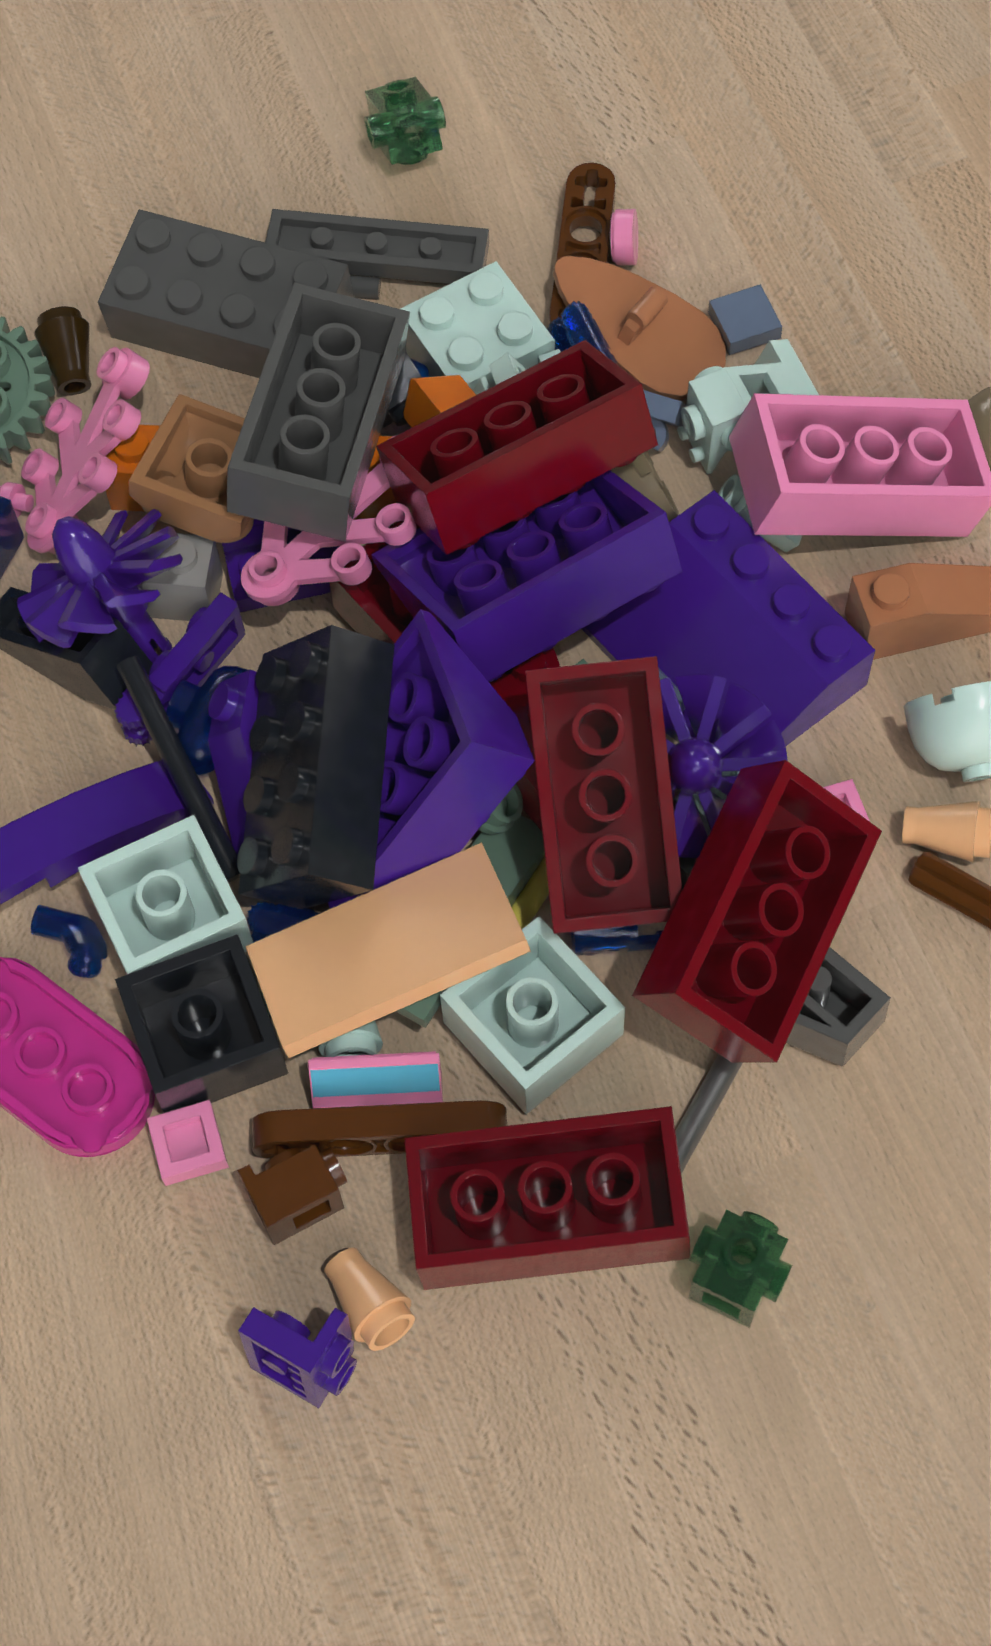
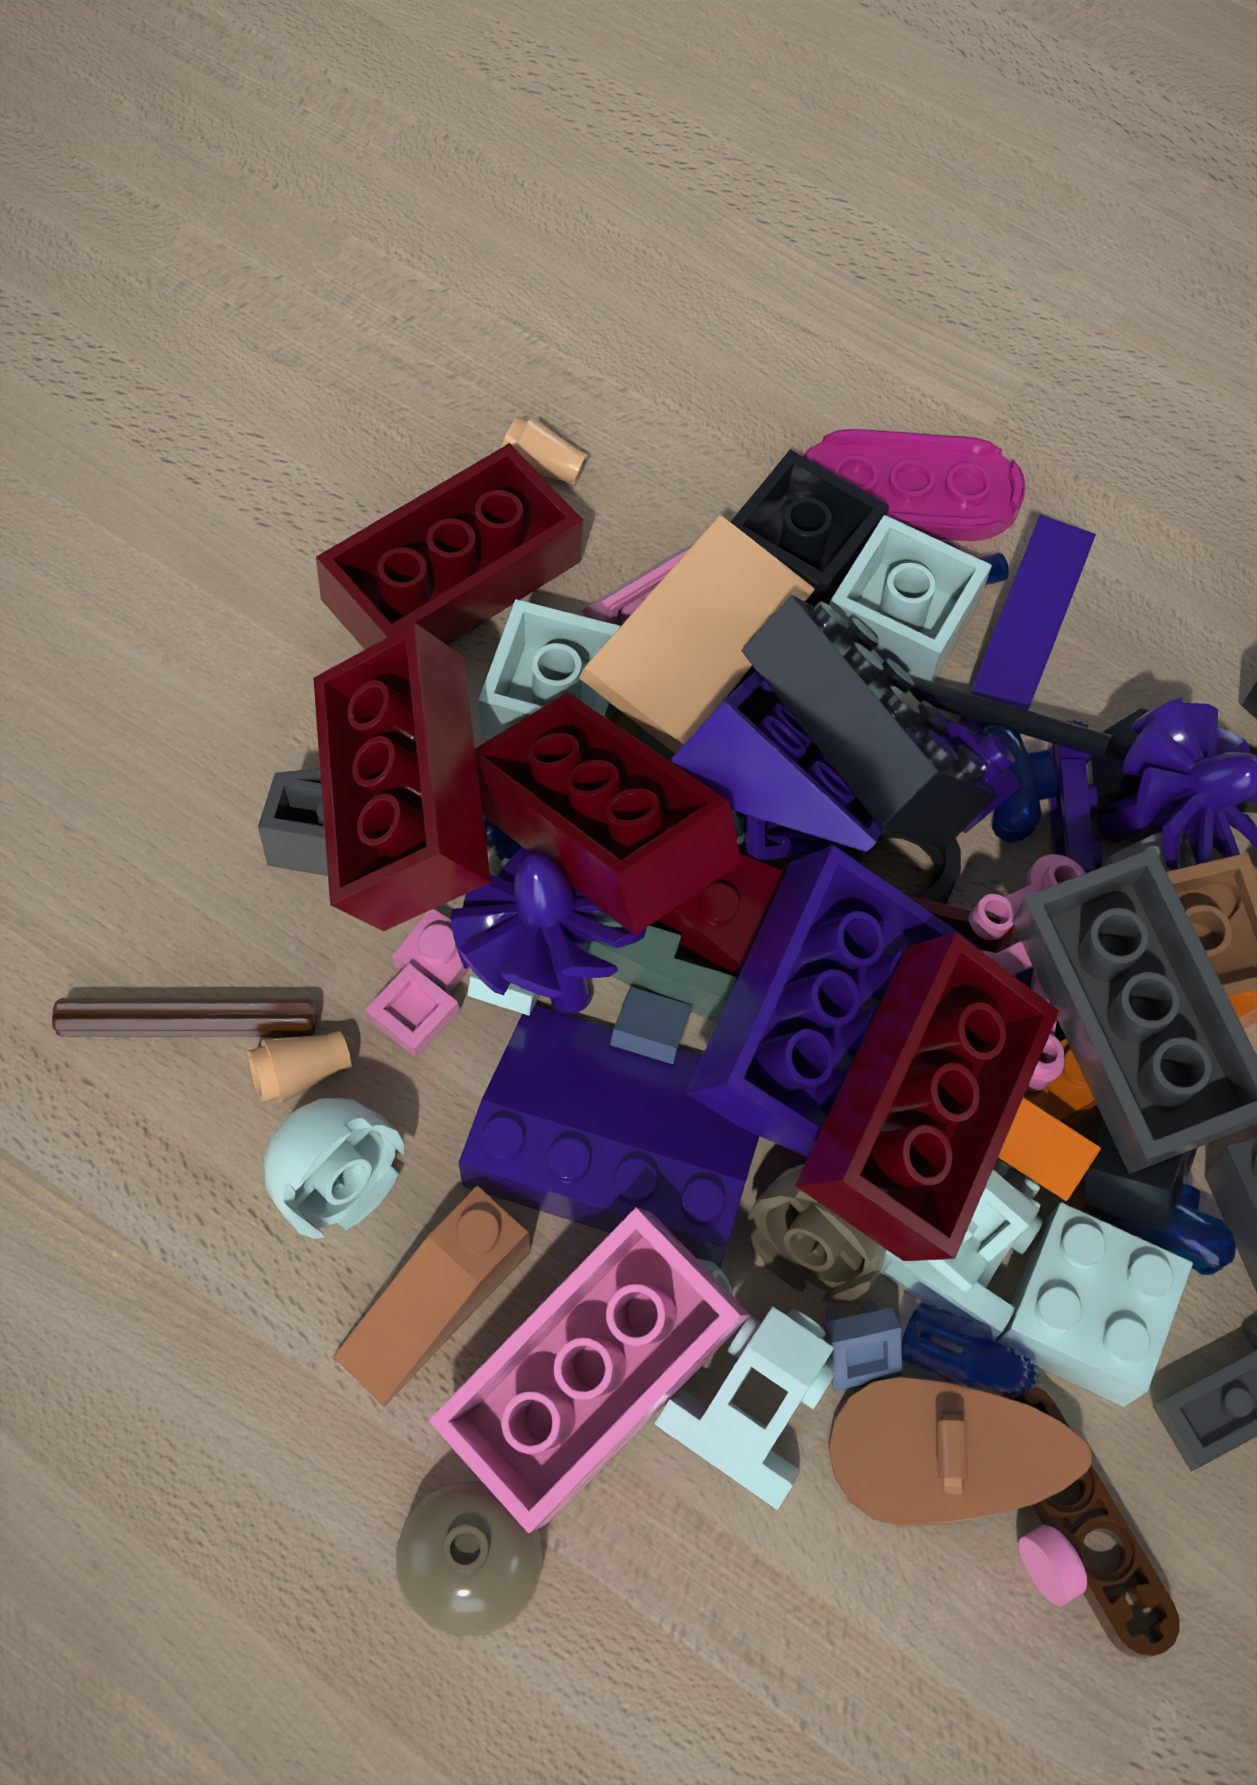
camera: 140 degrees right, 0 degrees up
(187, 1143) = (743, 472): bright pink plate -> none
(284, 1354) = (559, 366): dark purple bracket -> none
(295, 1190) = (649, 482): reddish brown brick -> none
(369, 1128) = (622, 553): reddish brown beam -> none
(734, 1287) = (275, 599): clear green brick -> none
(745, 319) = (851, 1548): sand blue tile -> none

